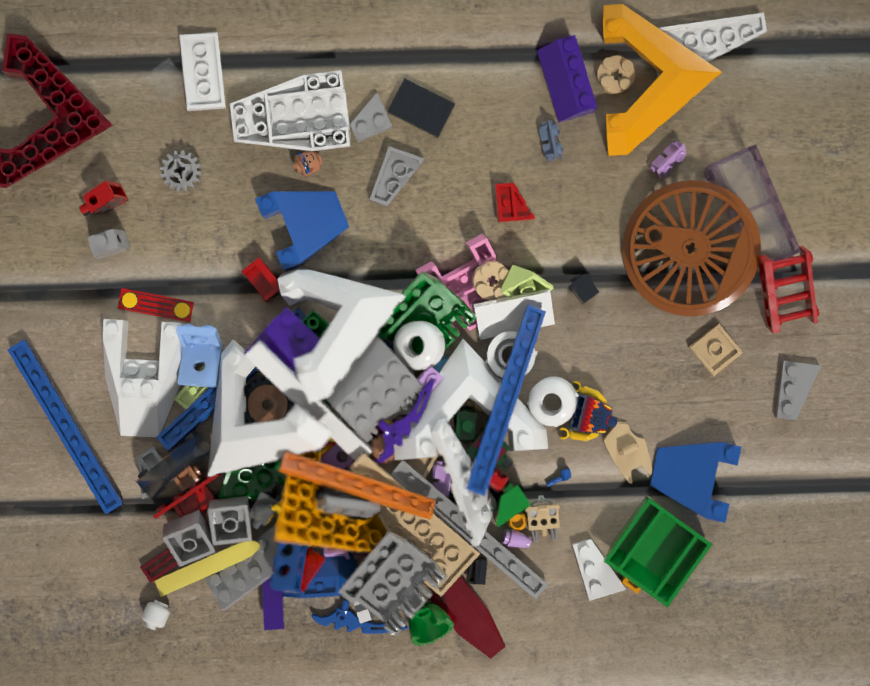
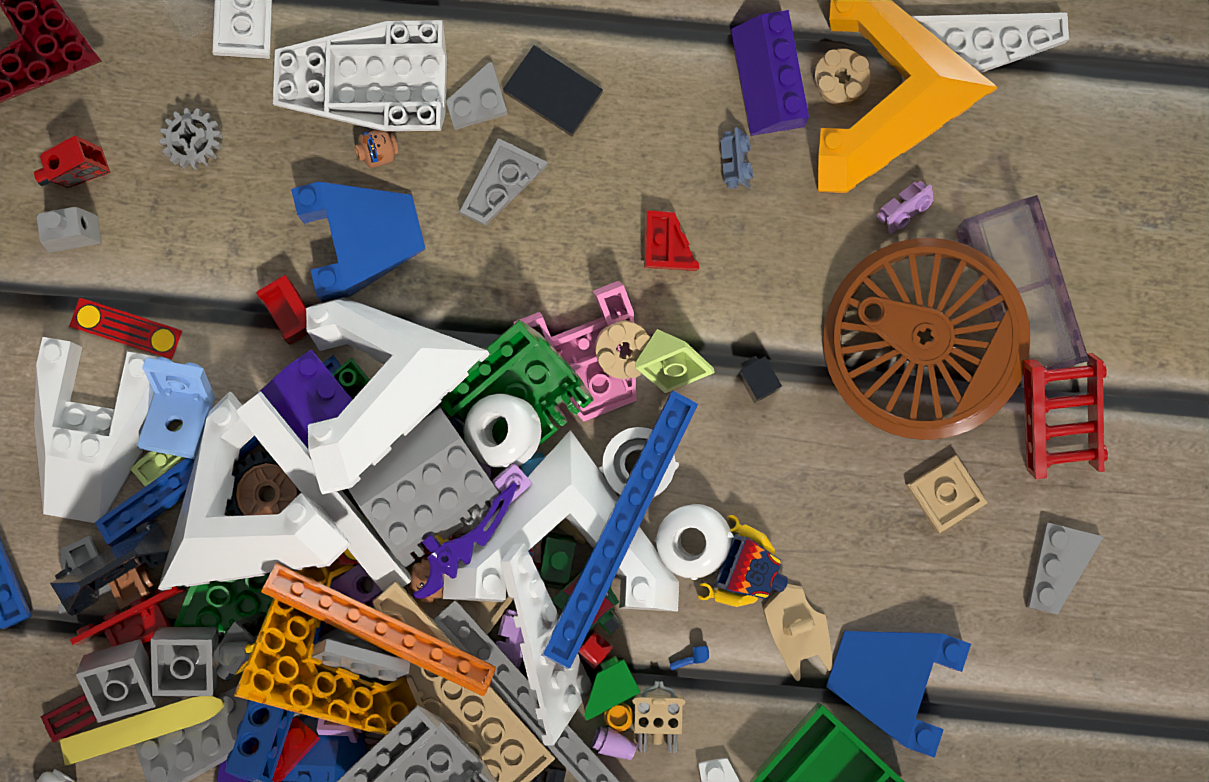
camera: 10 degrees right, 5 degrees down
(506, 313) = (639, 400): white tile -> none

